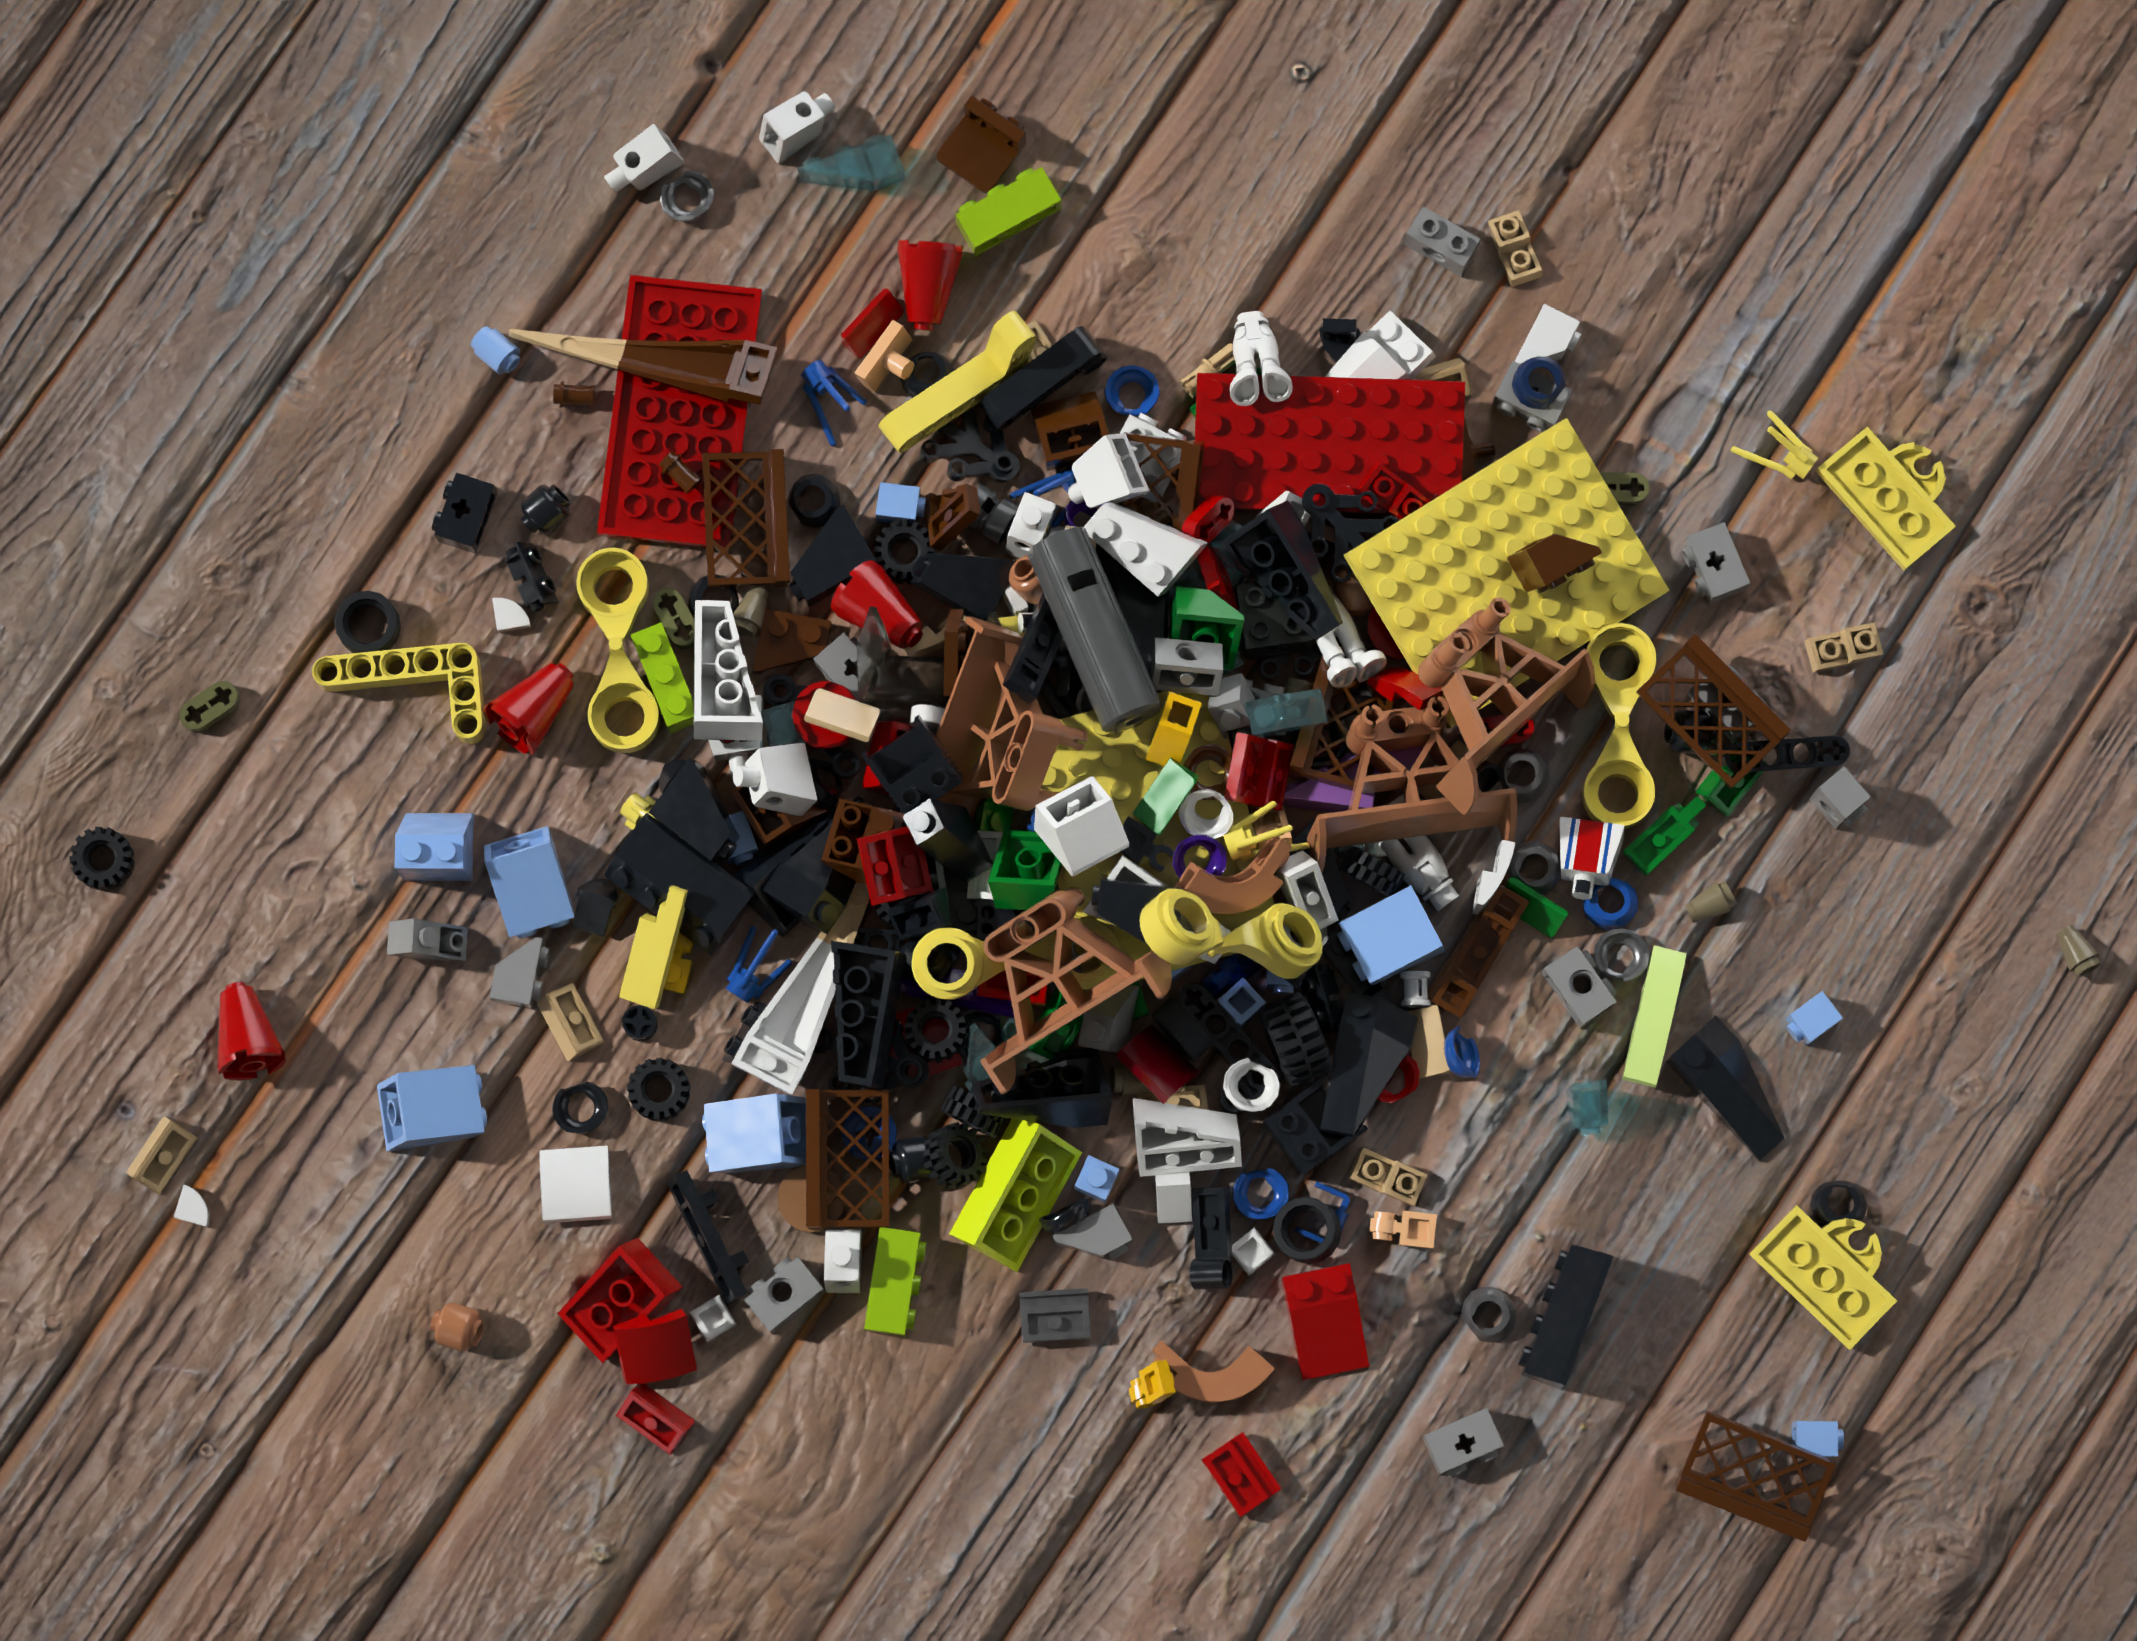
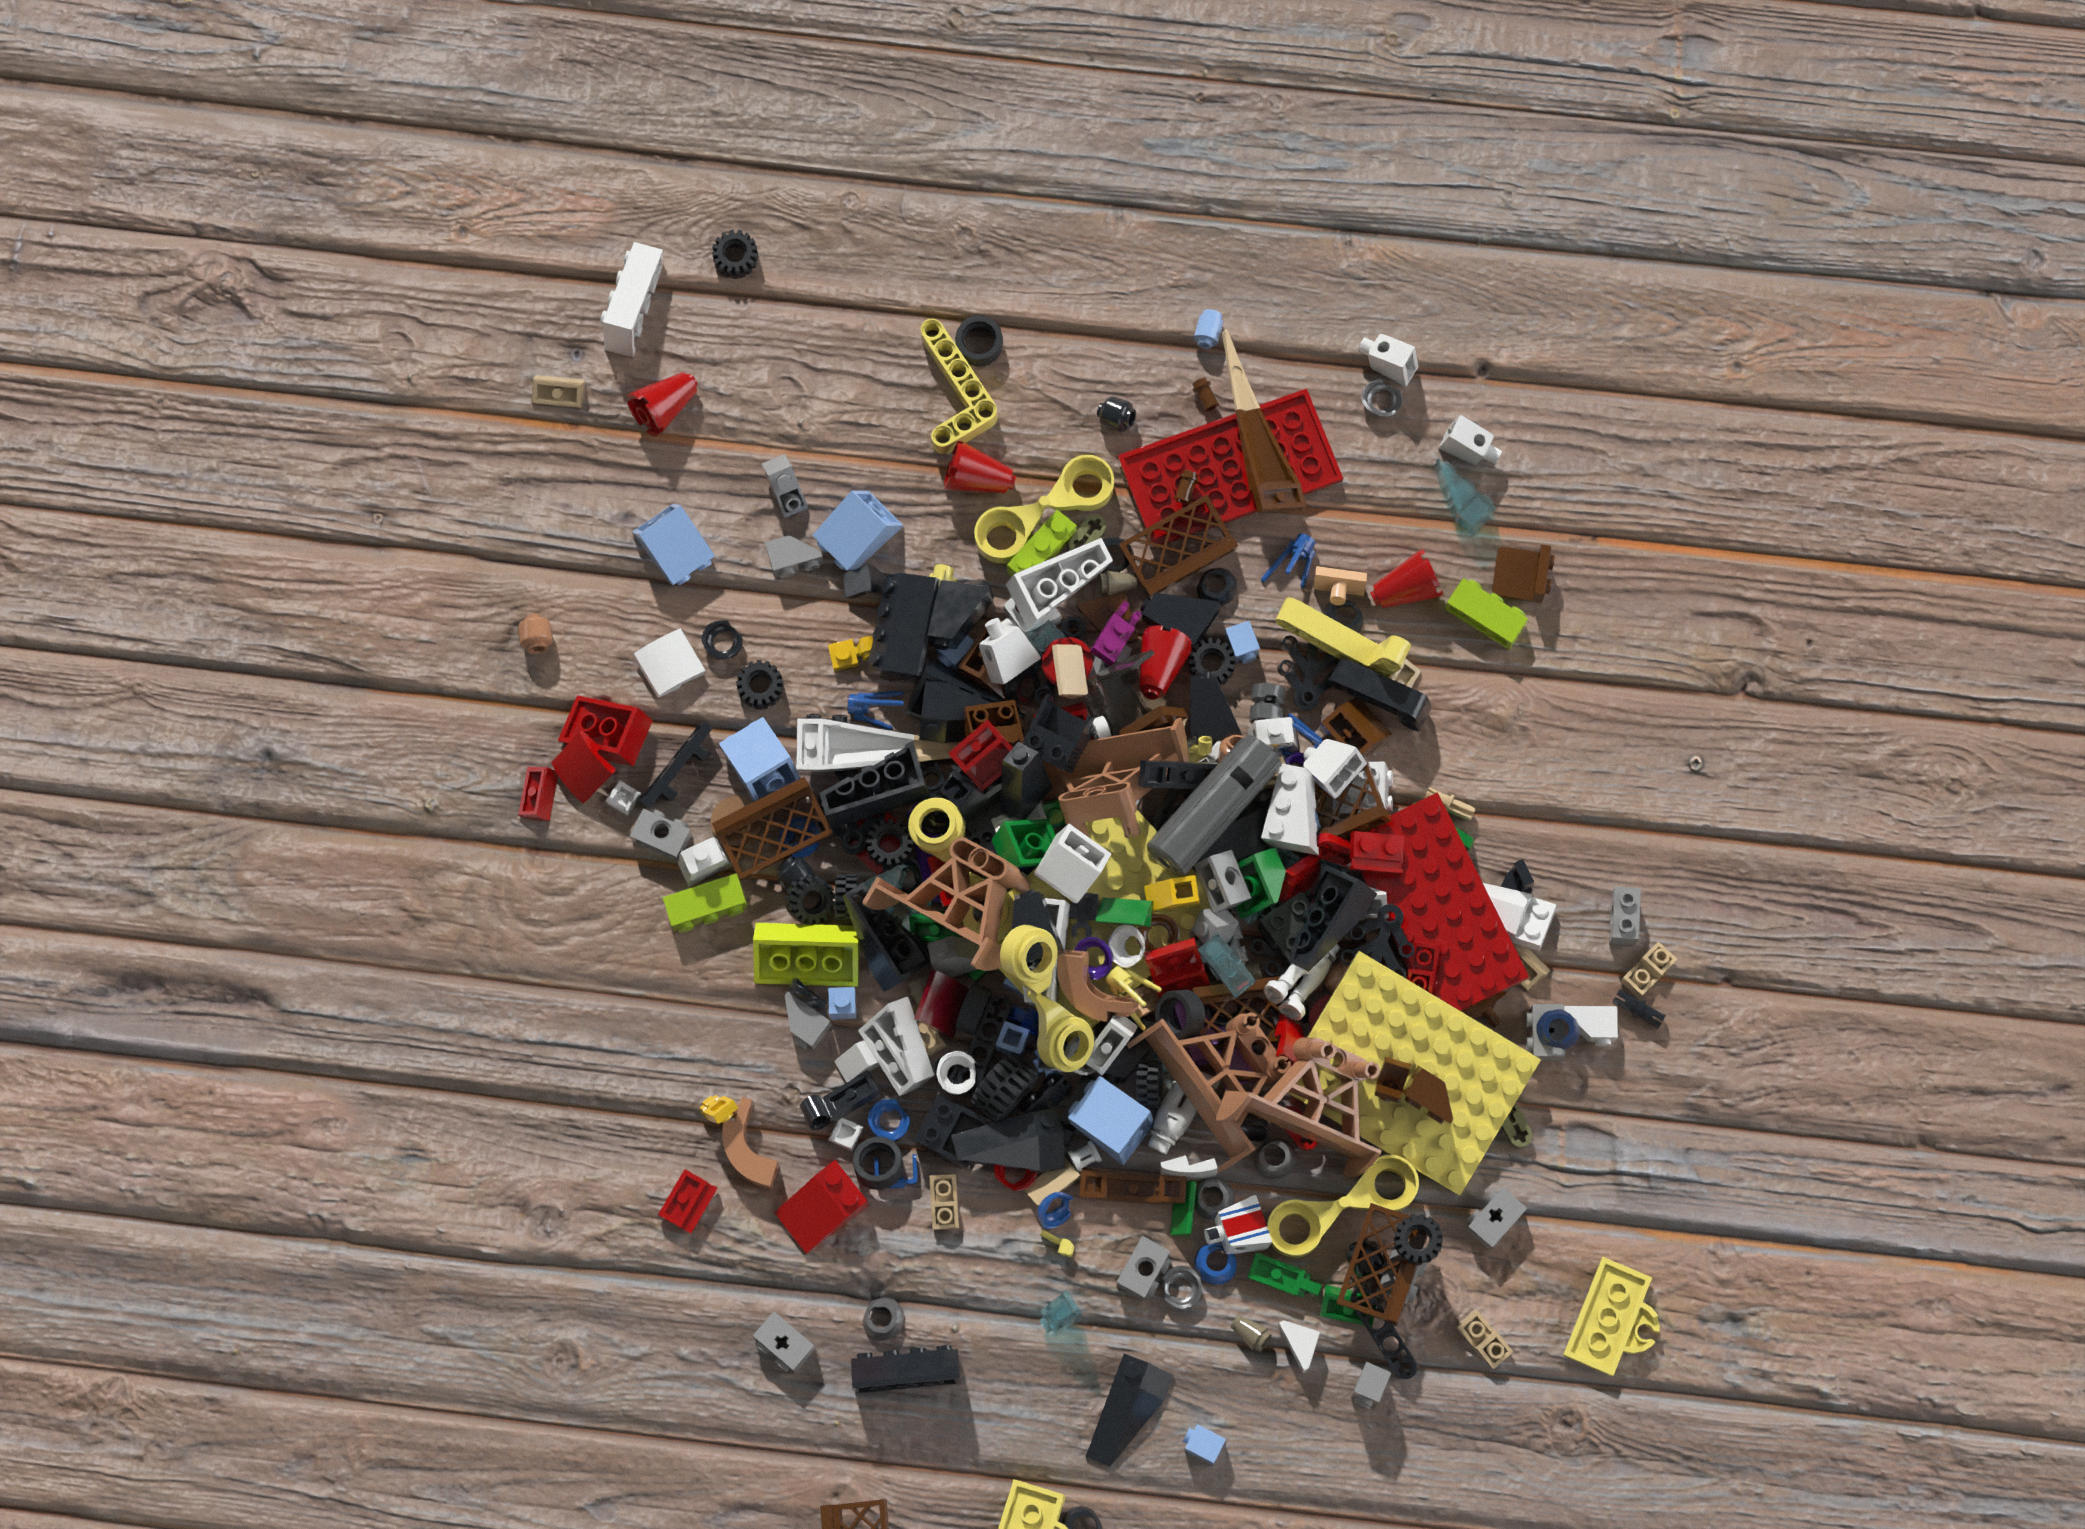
camera: 65 degrees right, 5 degrees down
(94, 1009) = (631, 298): none -> white wedge
(192, 1207) = (532, 427): white tile -> none
(204, 700) = (868, 274): olive beam -> none
(435, 847) = (849, 457): light blue slope -> none
(468, 530) = (1074, 368): black brick -> none
(509, 615) = (1032, 428): white tile -> none
(526, 562) = (1074, 421): black hinge -> none
(570, 1022) = (777, 605): tan slope -> none
(639, 1017) = (798, 644): black wheel -> none
(653, 951) = (849, 632): light yellow piece -> none
(819, 643) = (1115, 635): none -> magenta hinge
(871, 323) = (1359, 561): red slope -> none
(950, 513) = (1250, 677): reddish brown wing -> none
(1005, 608) = (1204, 746): none -> light yellow hand
(1055, 1315) = (735, 1022): flat silver plate -> none
(1132, 374) = (1411, 747): blue piece -> none
(1235, 477) = (1376, 852): none -> red plate
(1251, 342) = (1481, 822): white piece -> none
(1312, 774) = (1194, 1012): none -> black tyre
(1415, 1228) = (916, 1236): light nougat plate -> none
(1509, 586) = (1391, 1080): none -> reddish brown bracket
(1509, 1063) = (1066, 1247): none -> light yellow hand
(1554, 282) = (1638, 1008): none -> black pin
(1654, 1016) = (1149, 1331): yellowish green slope -> none
(1708, 678) = (1418, 1223): none -> black tyre
(1751, 851) = (1300, 1341): none -> white slope
(1799, 458) = (1603, 1241): light yellow plant -> none

